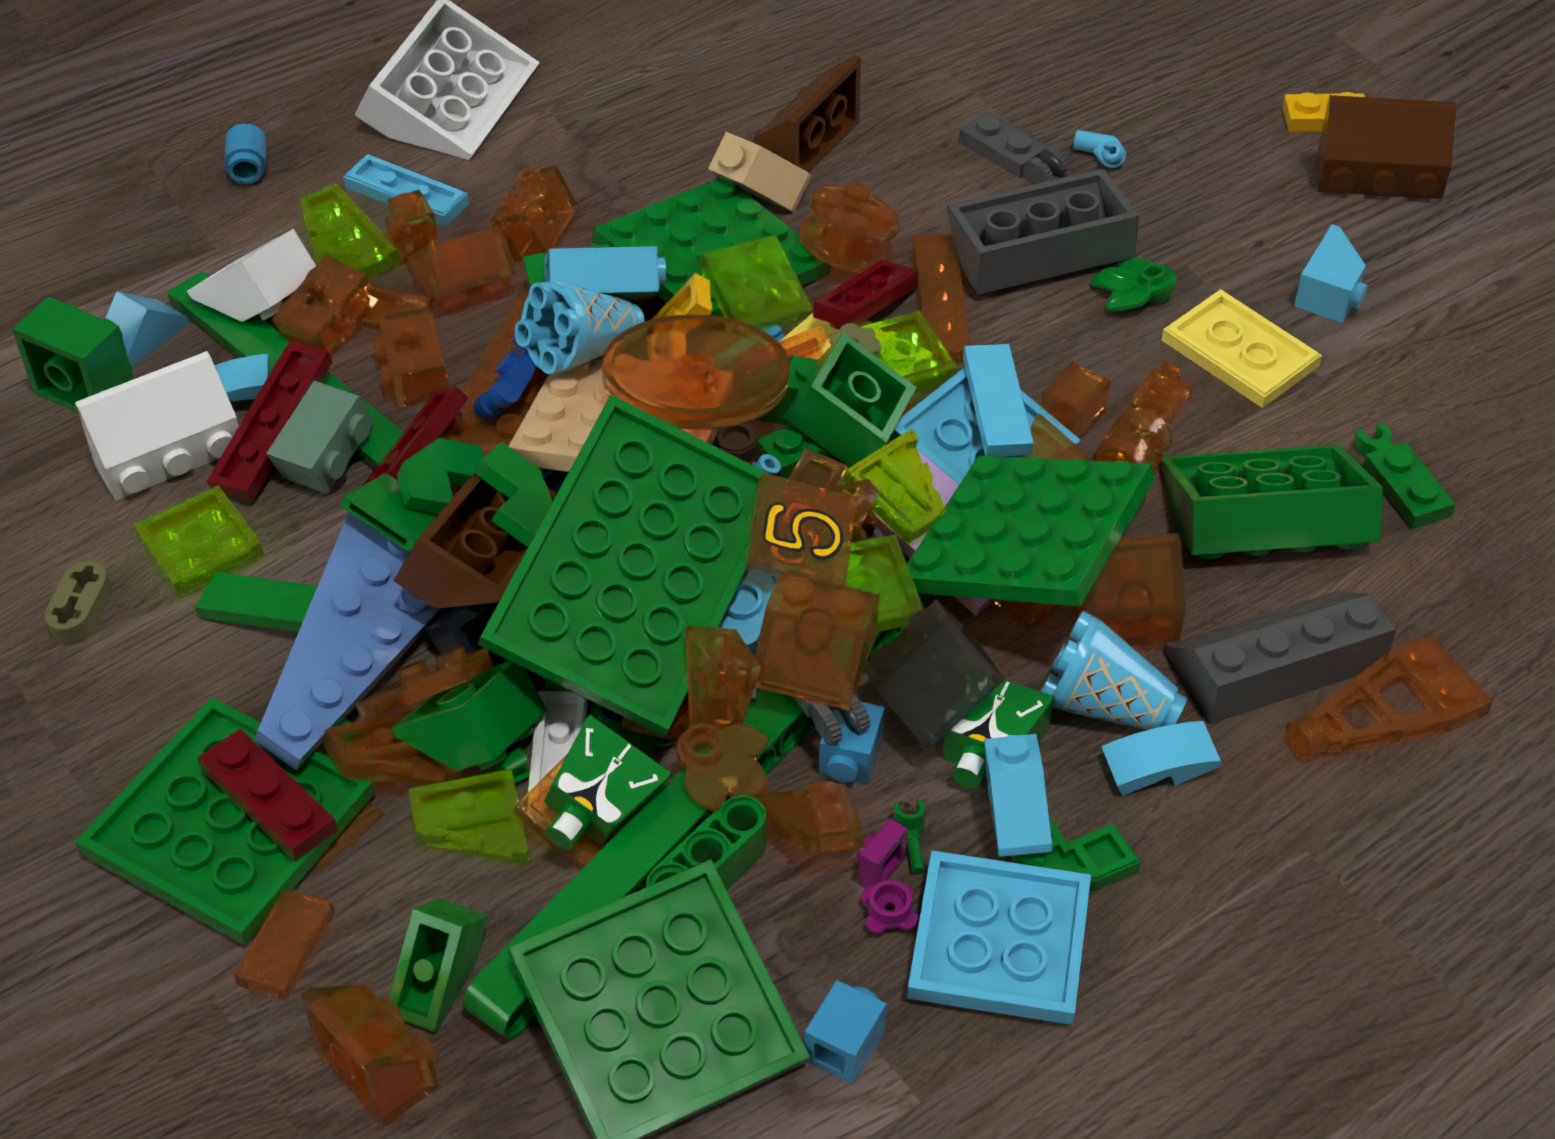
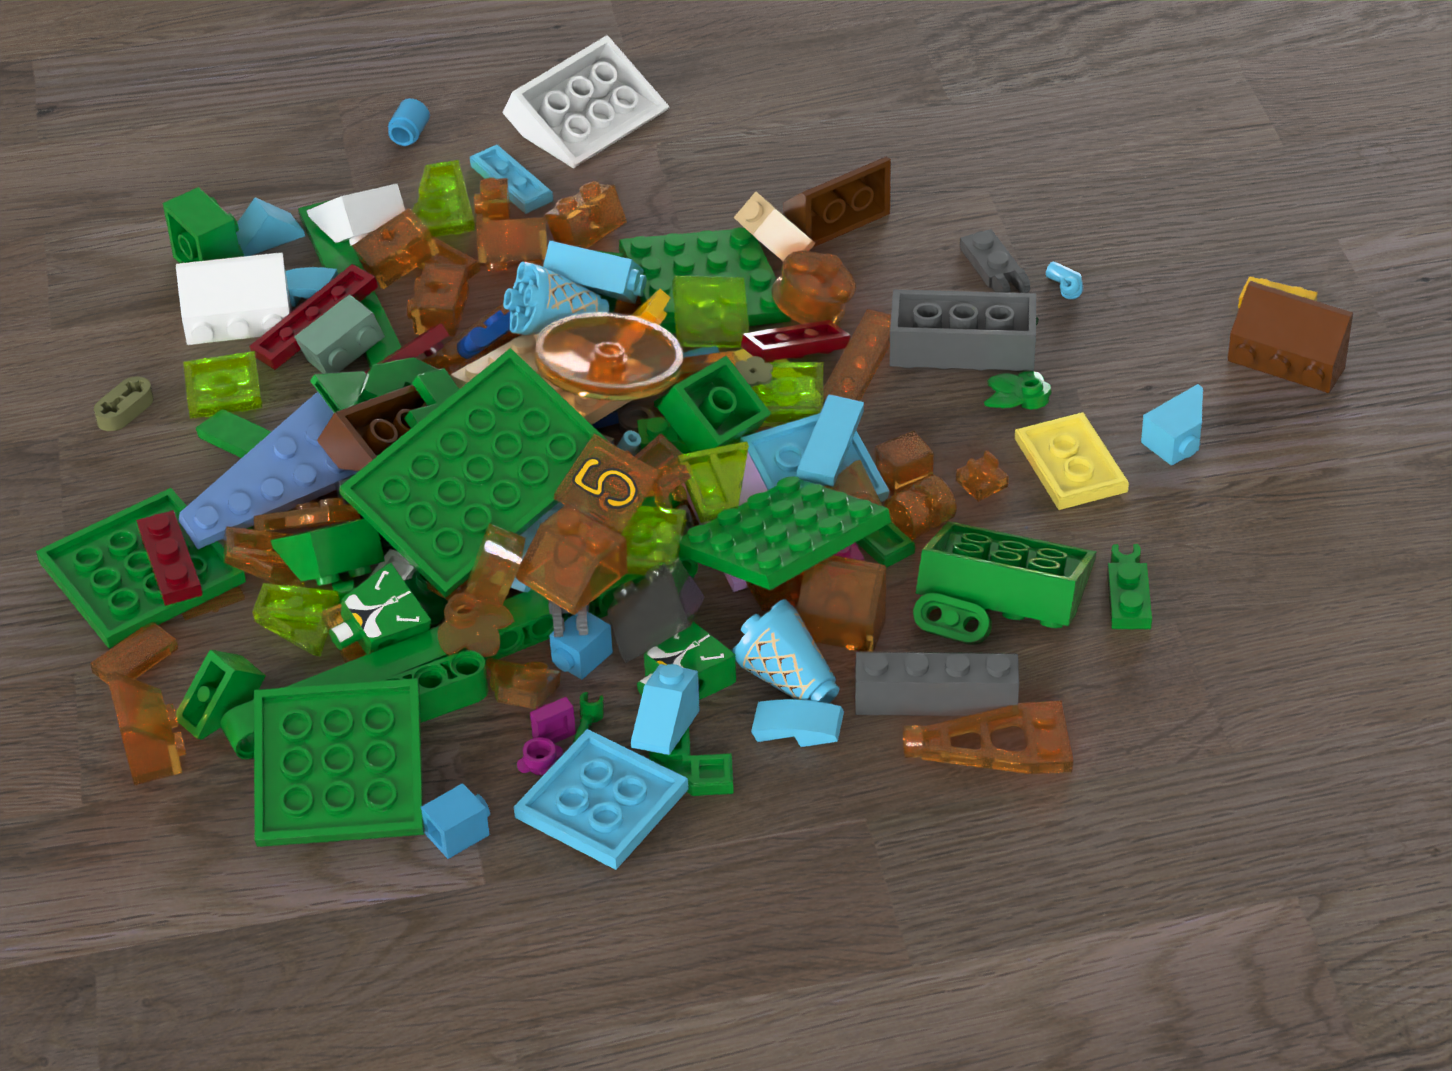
camera: 25 degrees right, 5 degrees down
(1249, 572) = (953, 619): none -> green plate

